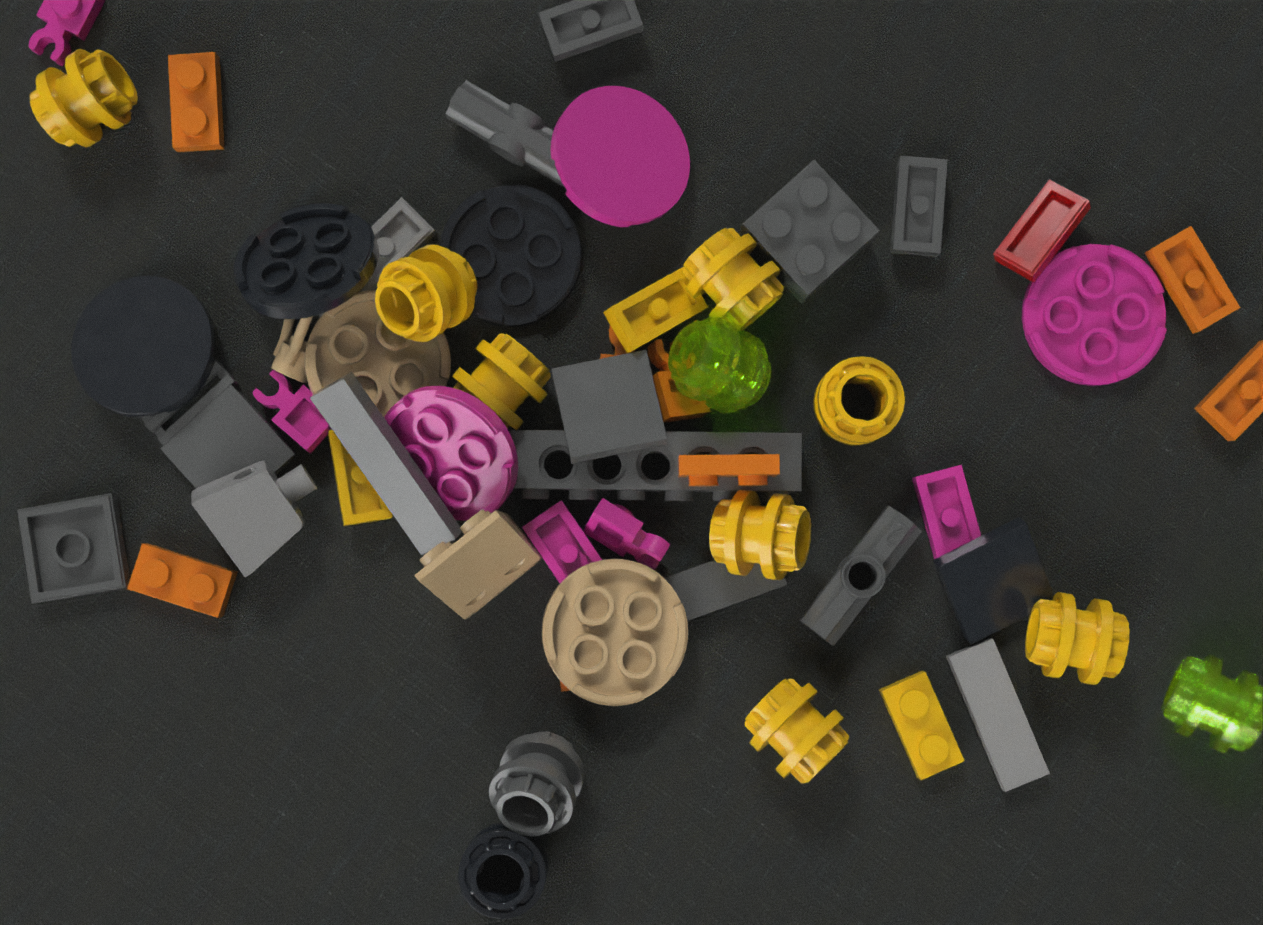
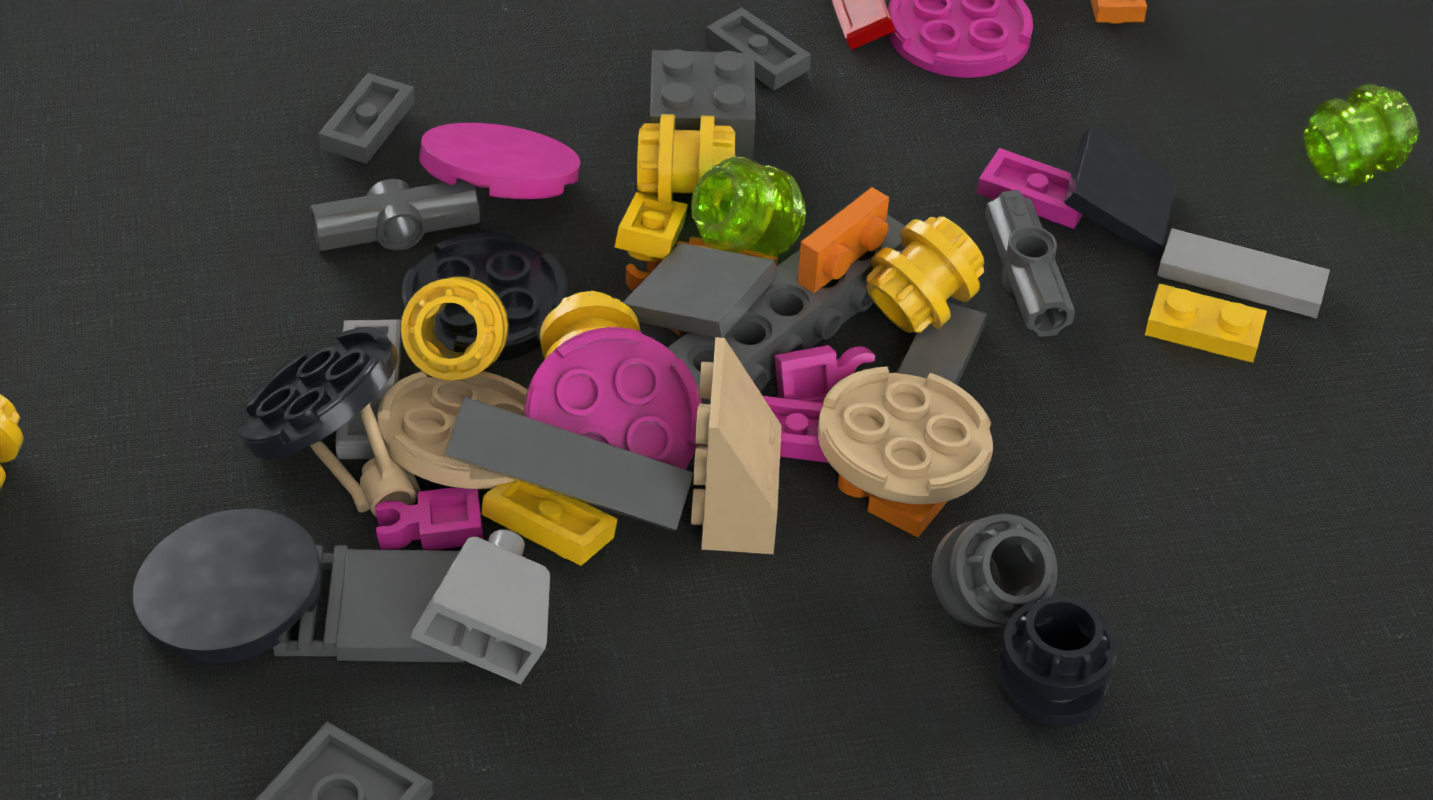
camera: 55 degrees left, 40 degrees down
(182, 580) = (480, 737): orange plate -> none
(196, 102) = (70, 397): orange plate -> none
(796, 730) = (1129, 378): yellow piece -> none
(883, 386) = (879, 150): yellow piece -> none
(1083, 639) = (1222, 169): yellow piece -> none

